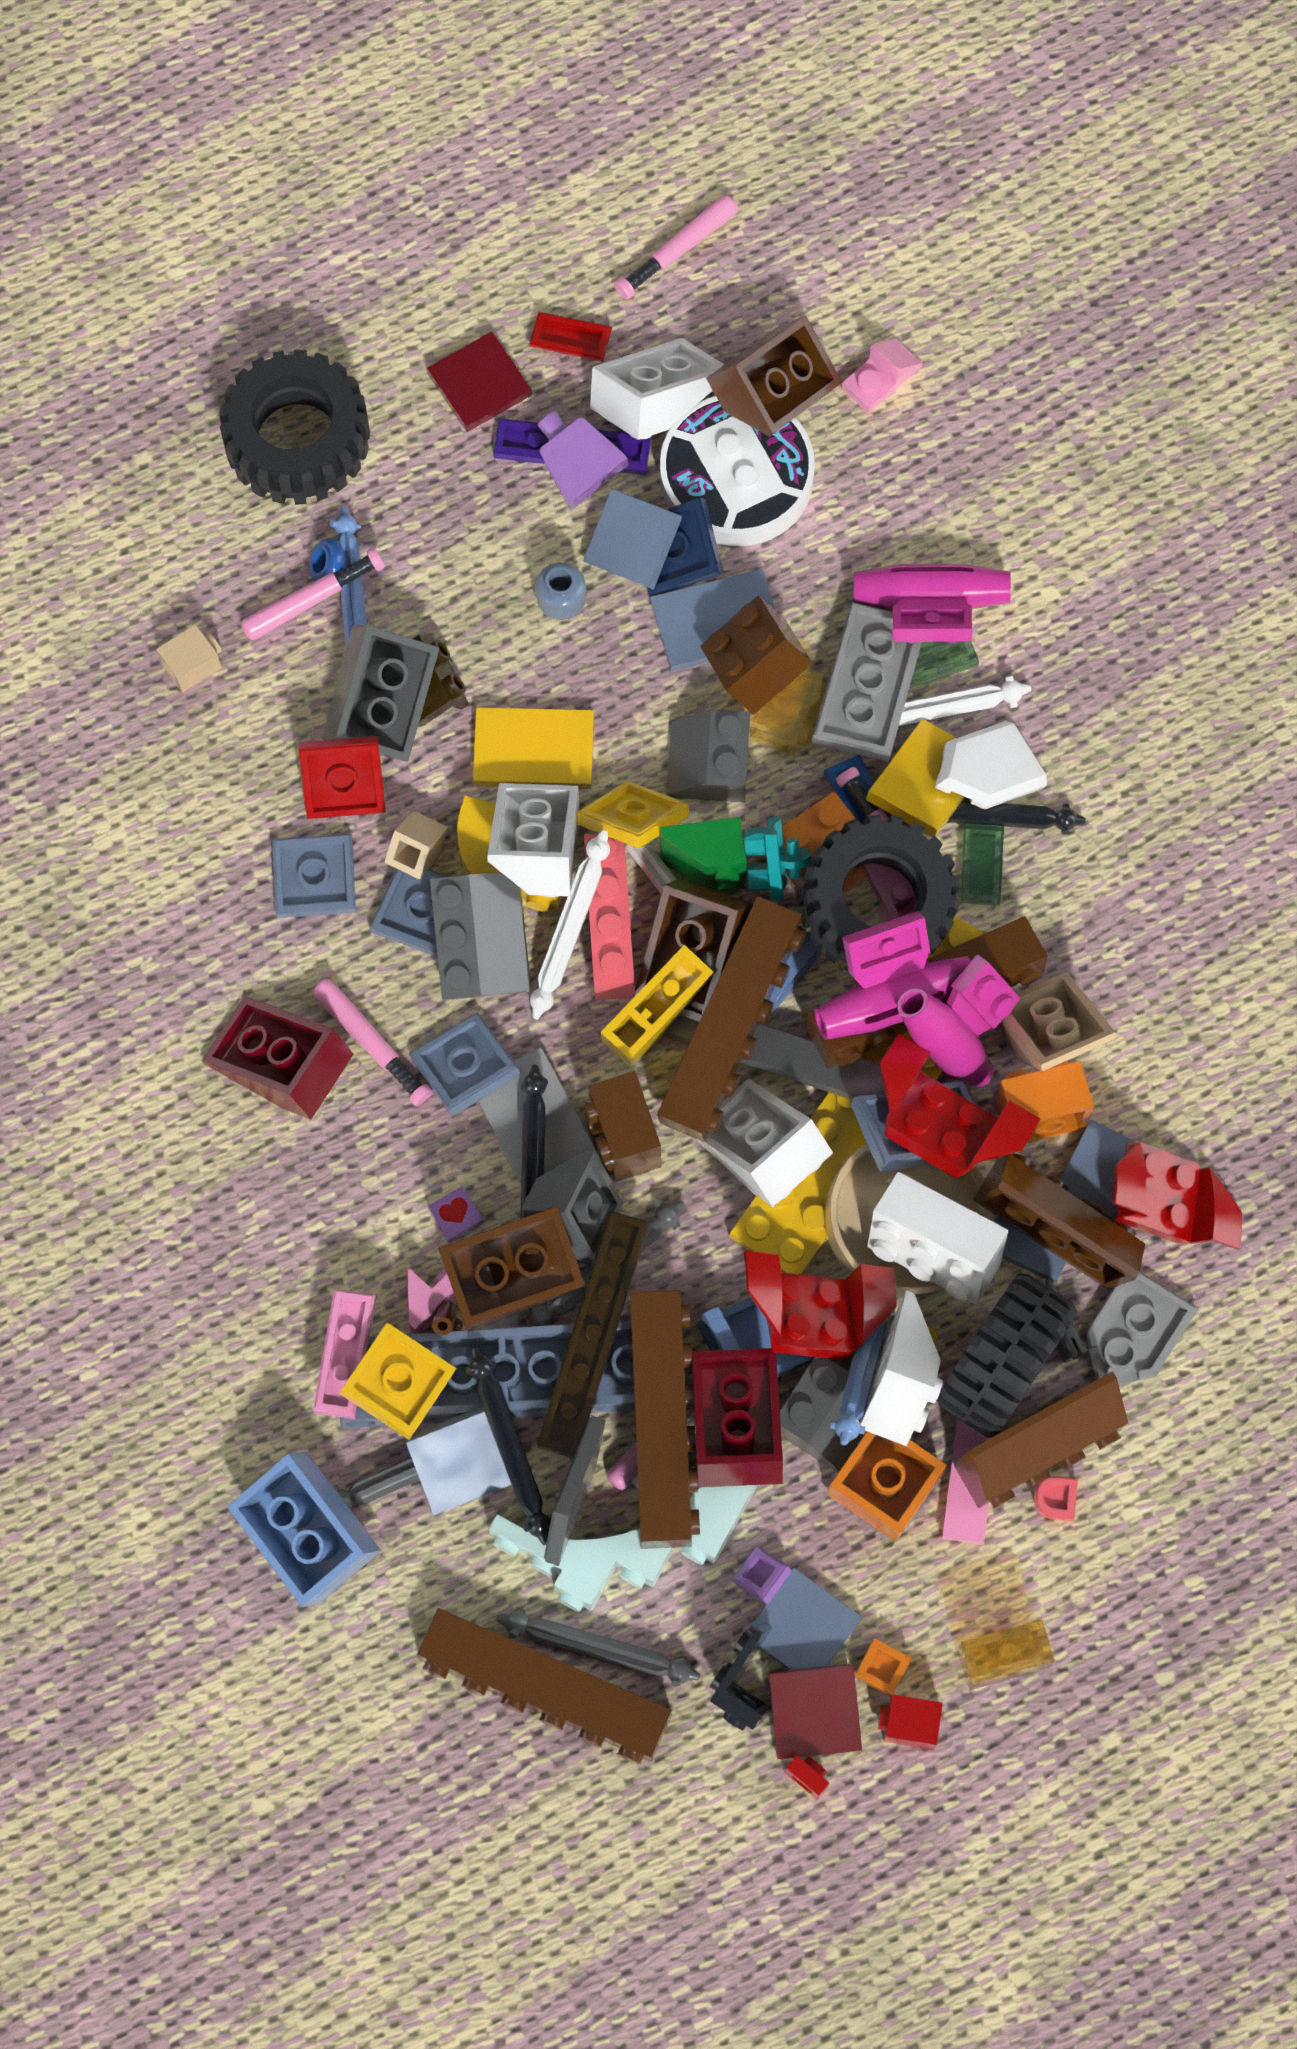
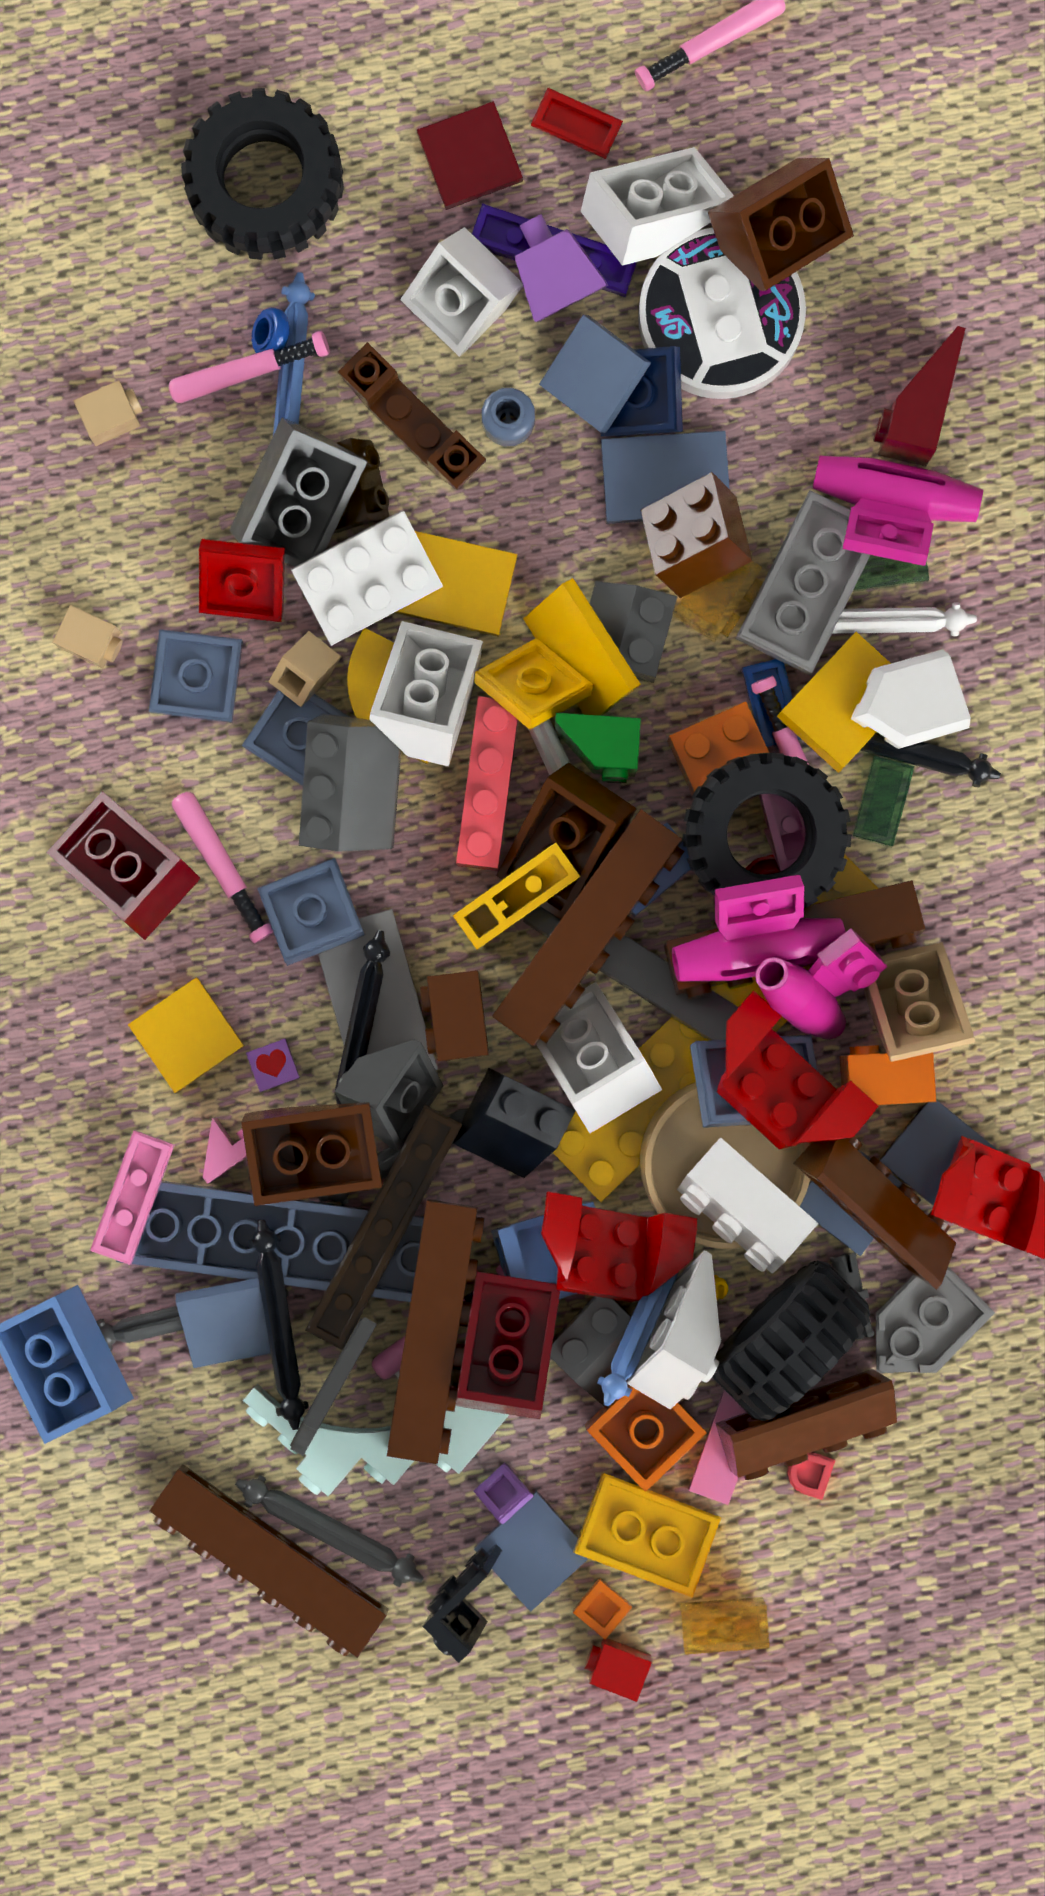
camera: 15 degrees right, 15 degrees up
(206, 857) = (88, 637): none -> tan brick
(366, 1203) = (186, 1035): none -> yellow tile
(397, 1381) = (178, 1240): yellow plate -> none
(446, 1320) = (238, 1180): reddish brown arm -> none
(458, 749) = (366, 577): none -> white brick
(466, 612) = (409, 418): none -> reddish brown slope
(495, 494) = (461, 290): none -> white slope
(570, 924) = (445, 790): white wheel -> none
(665, 764) = (577, 635): none -> yellow tile
(697, 1217) = (512, 1124): none -> black slope
(769, 842) = (672, 768): teal hips -> none
(808, 1775) = (507, 1700): red plate -> none
(815, 1711) = (527, 1638): dark red tile -> none
(881, 374) = (898, 232): bright pink slope -> none
(911, 1587) = (647, 1535): none -> yellow tile
(932, 526) = (916, 418): none -> dark red slope

